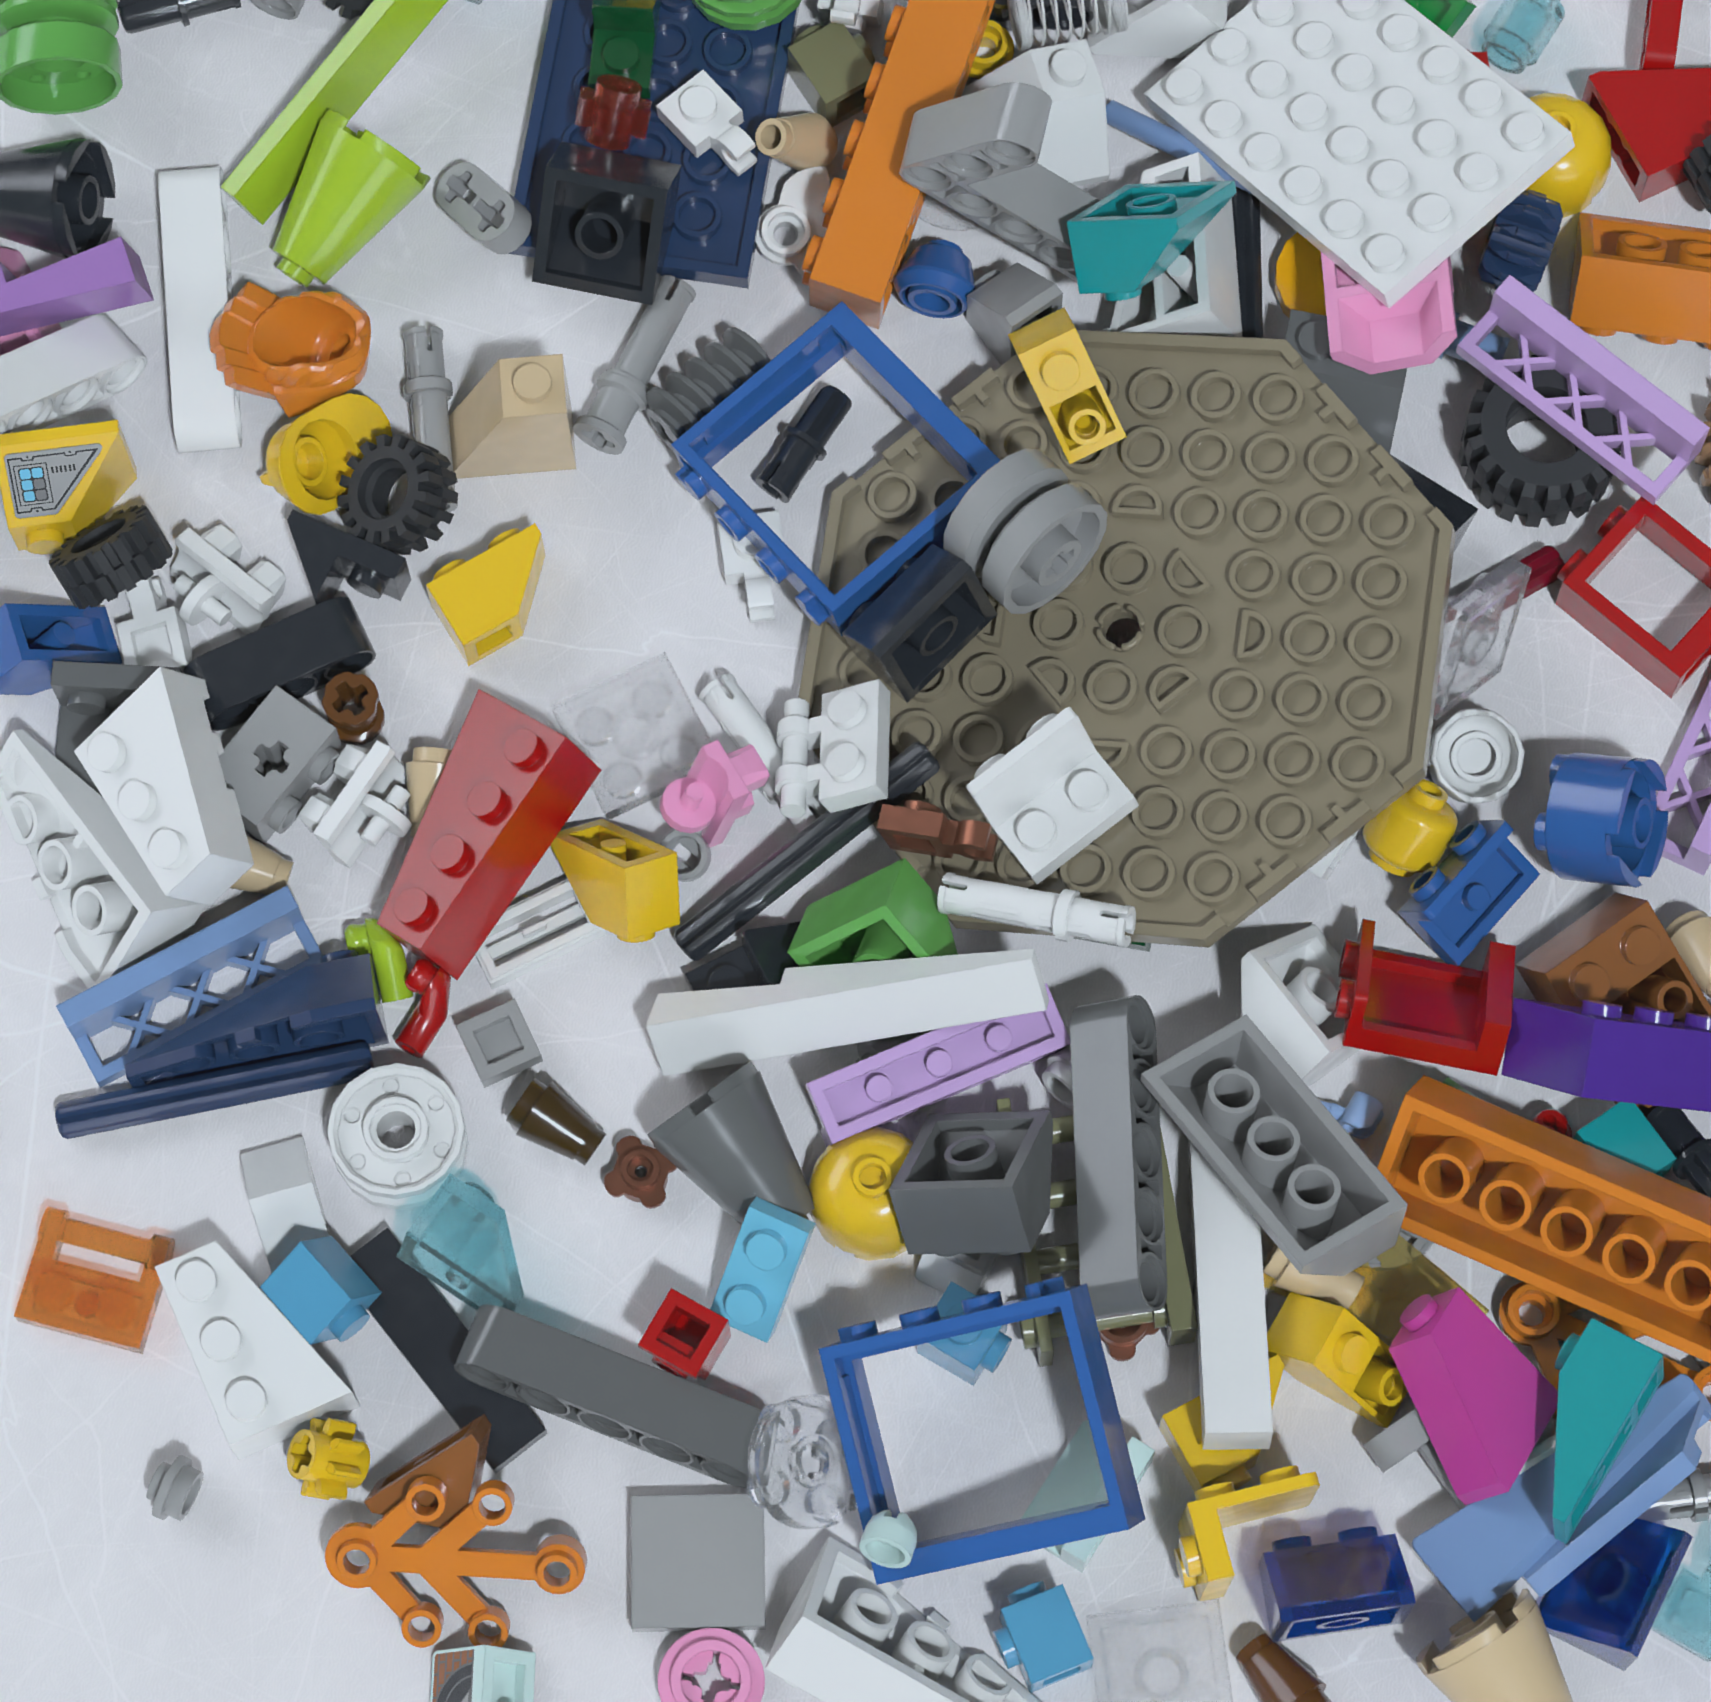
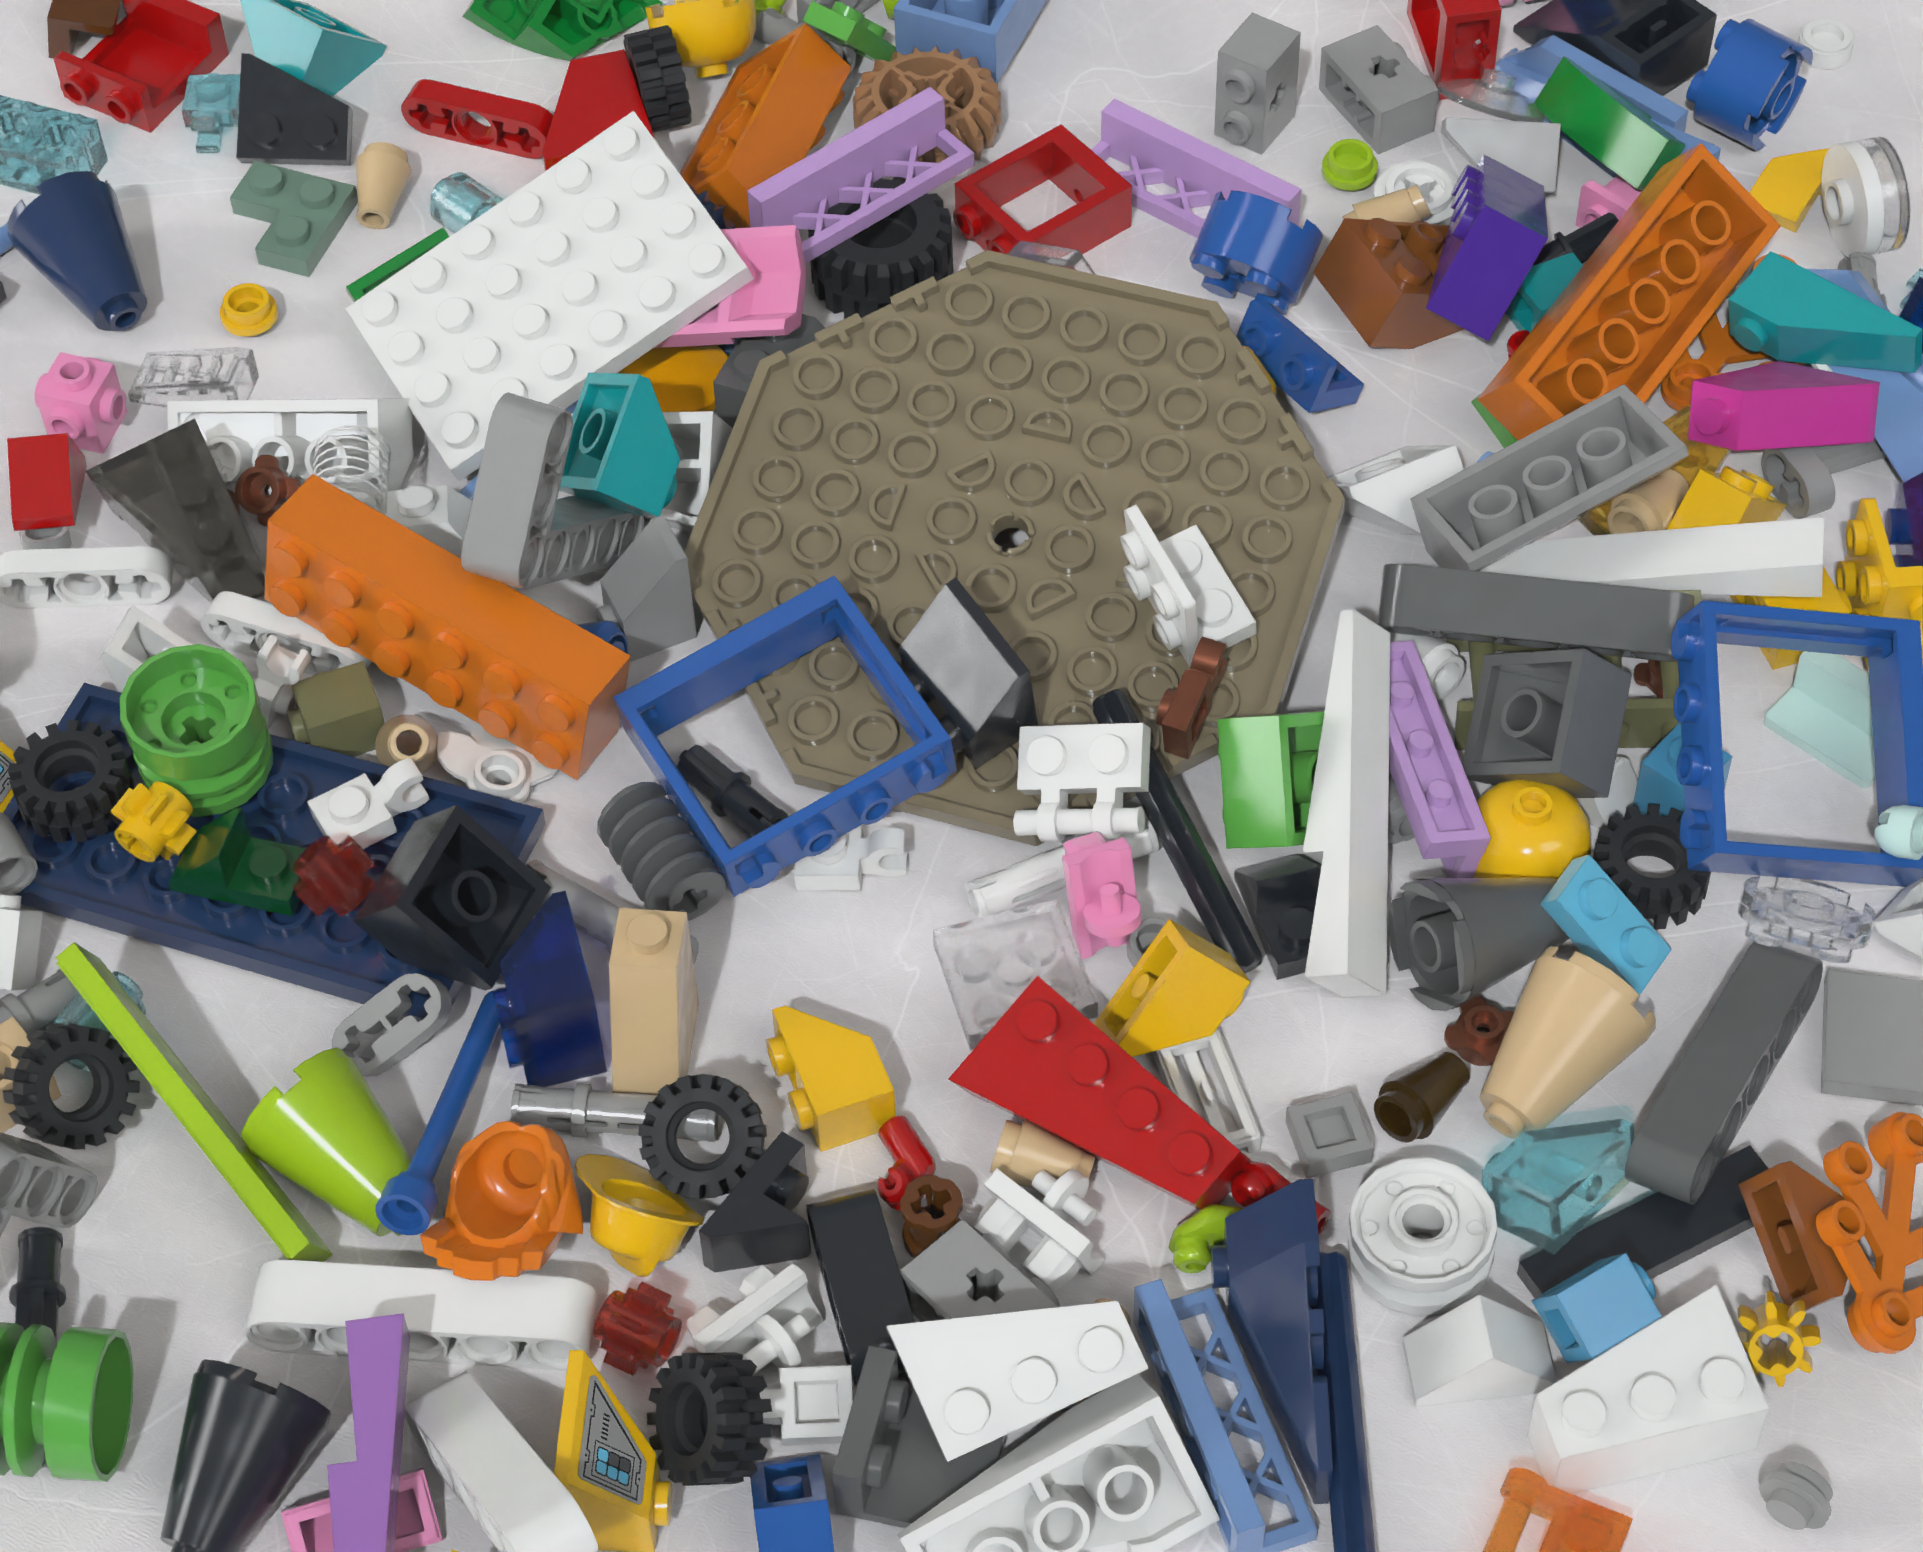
camera: 80 degrees left, 20 degrees down
(205, 484) = (637, 1328): none -> clear red gear
(284, 263) = (410, 1196): none -> blue piece
(413, 684) = (910, 1159): none -> red arm
(521, 318) = (549, 1002): none -> clear blue slope
(618, 1237) = (1561, 1041): none -> tan cone
(685, 1337) = (1677, 992): red brick -> none
(850, 1276) = (1654, 837): none -> black tyre
(1025, 530) = (910, 554): light grey wheel -> none
(1062, 914) = (1300, 600): white pin -> none
(1067, 385) = (752, 529): yellow slope -> none
(1426, 1006) = (1412, 388): red panel -> none

